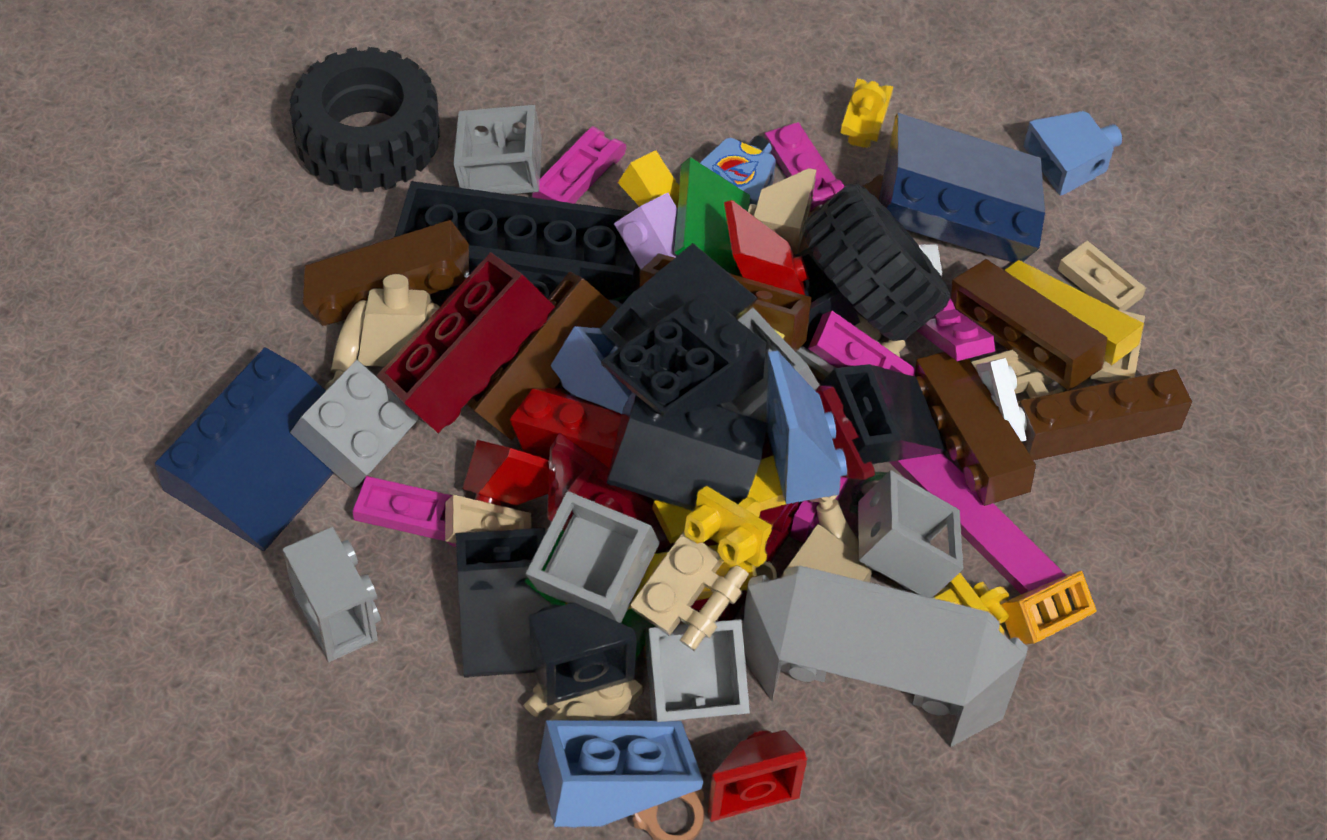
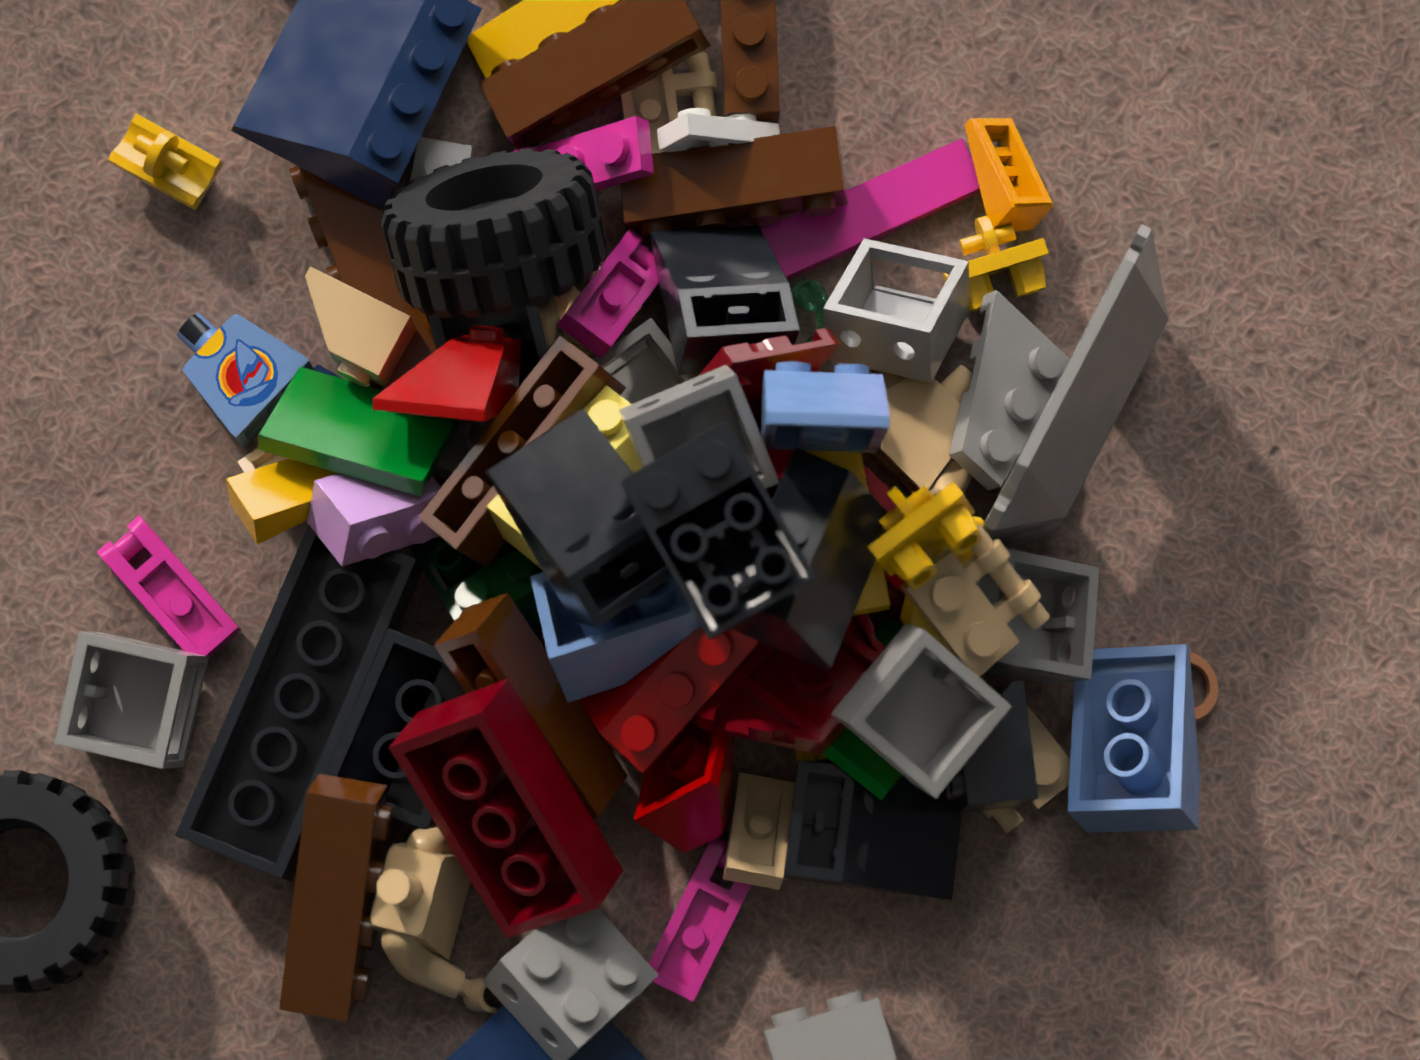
camera: 75 degrees left, 25 degrees up
(757, 775) = (1165, 577): red slope -> none
(797, 153) = (232, 276): dark pink plate -> none

